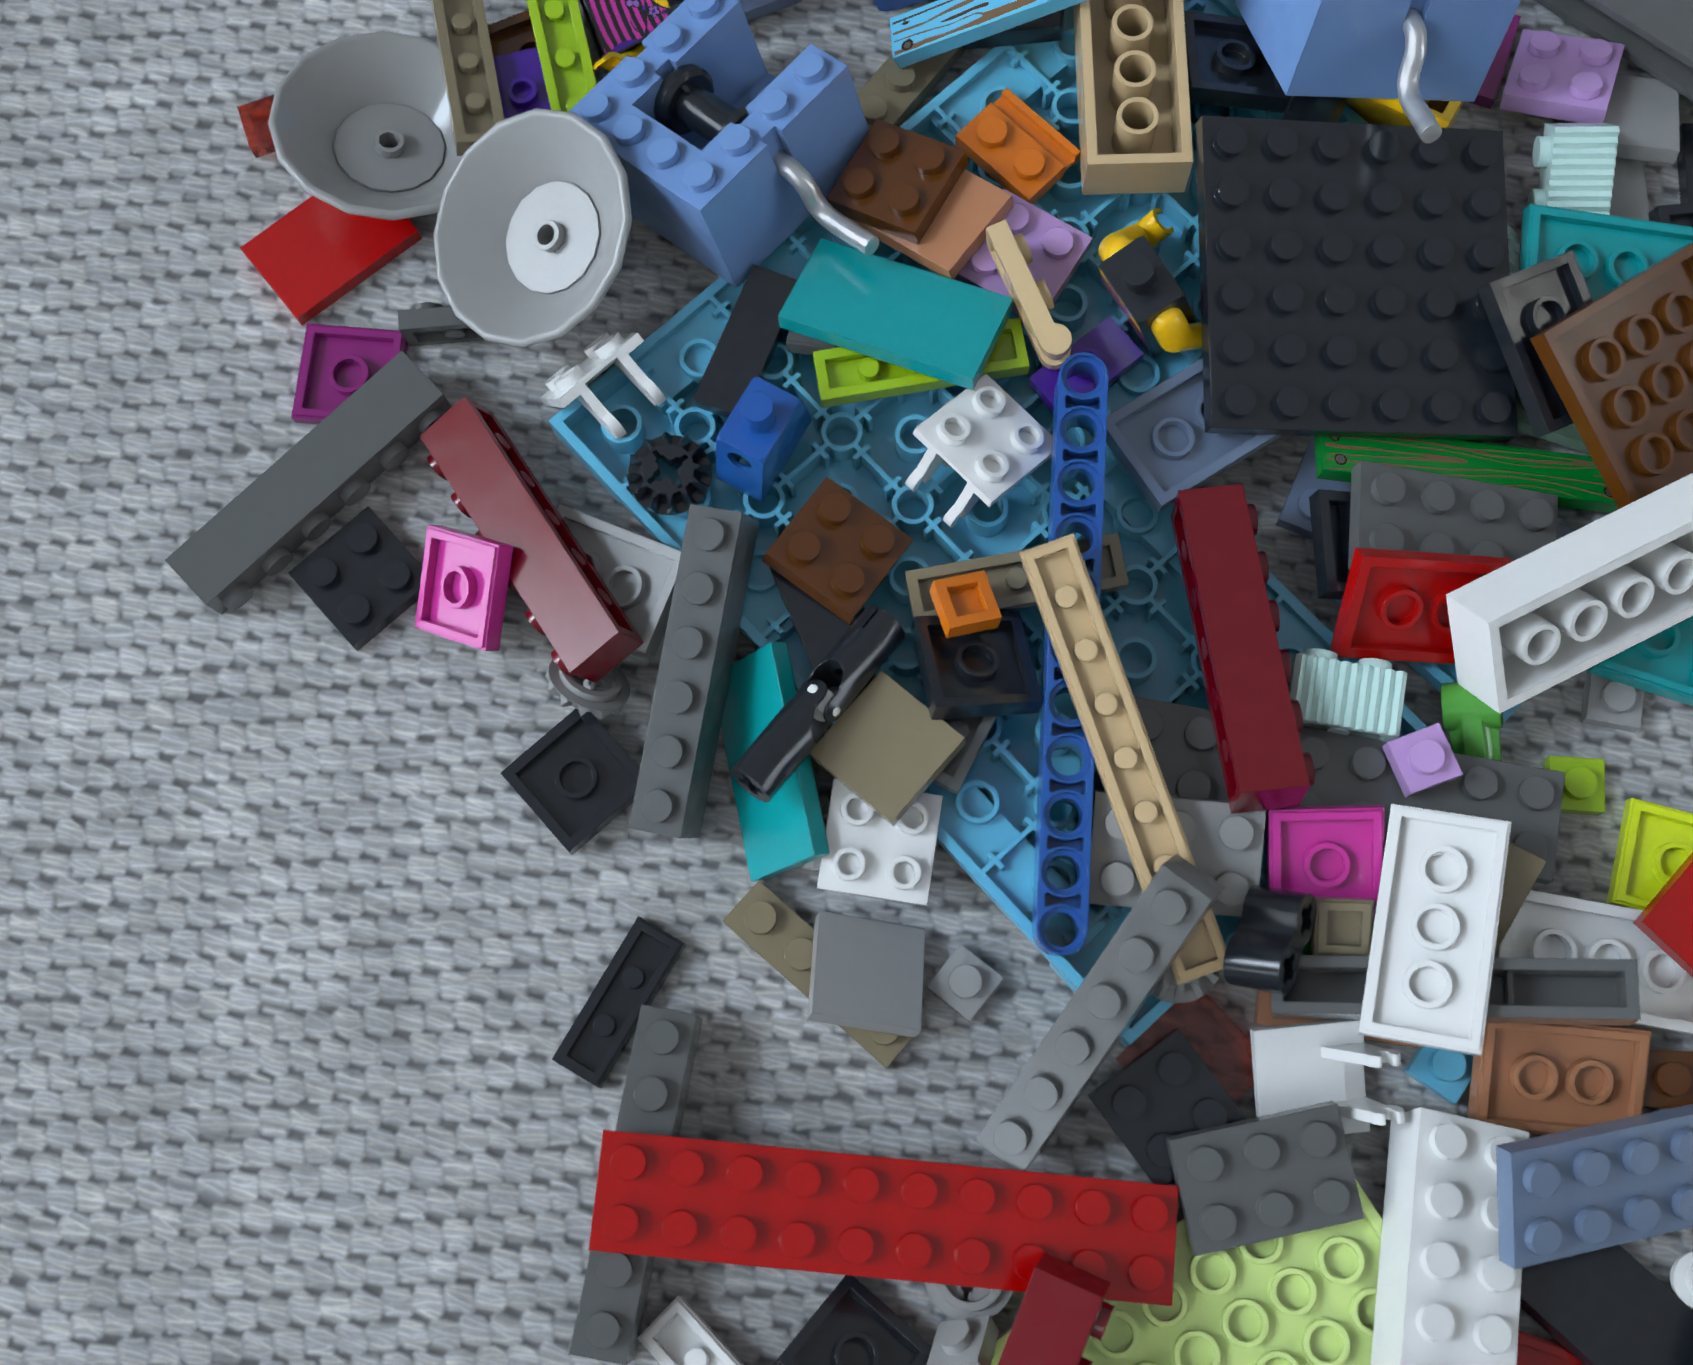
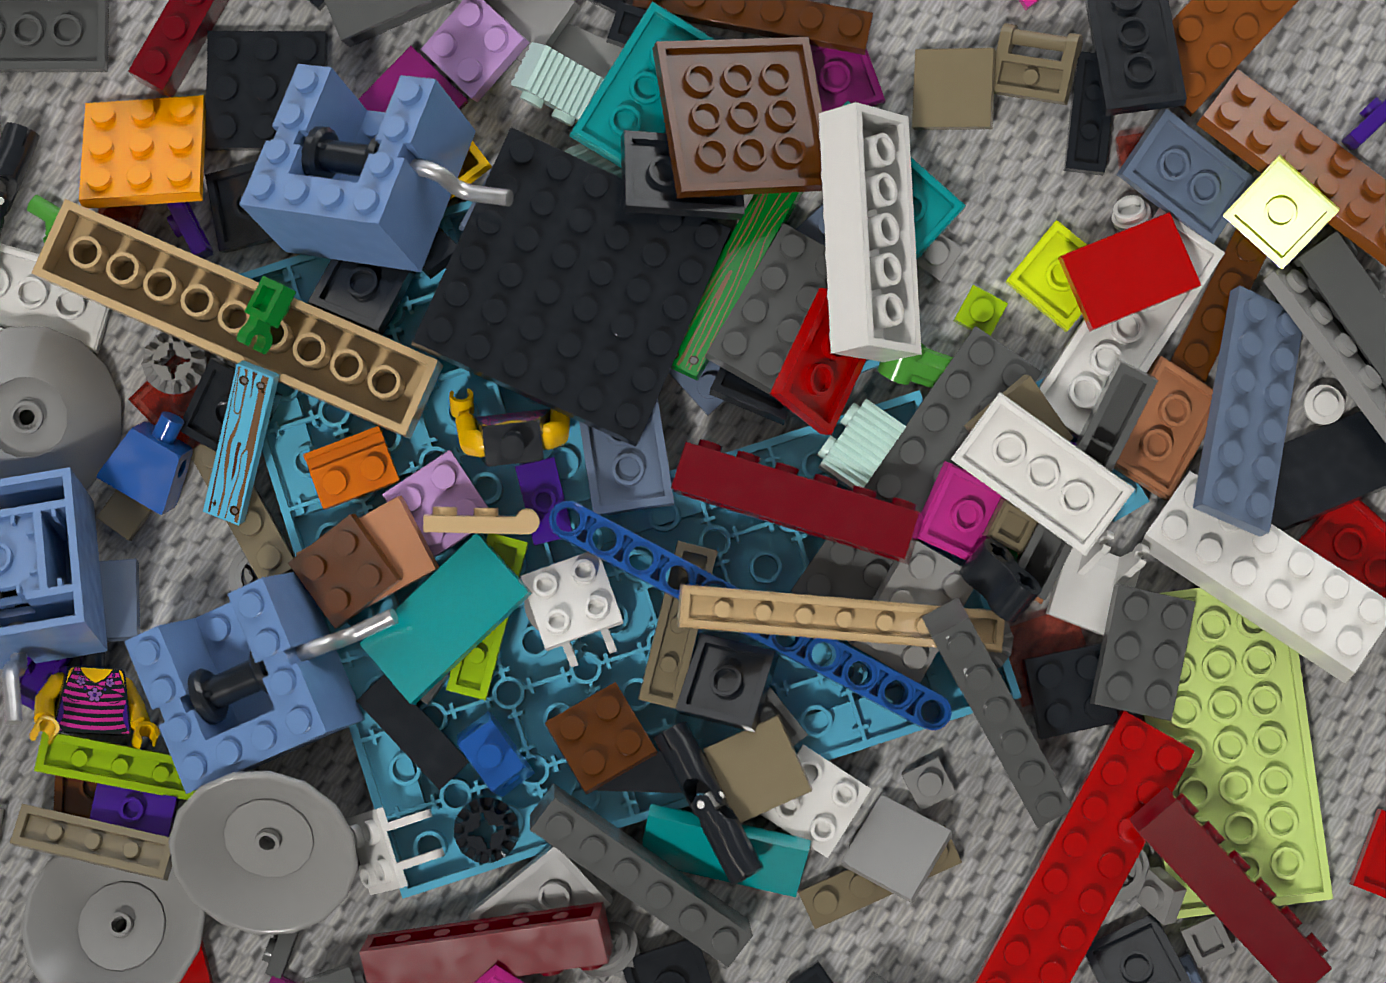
camera: 65 degrees left, 10 degrees up
(965, 604) = (684, 671): orange plate -> none
(1422, 760) = (927, 418): lavender plate -> none

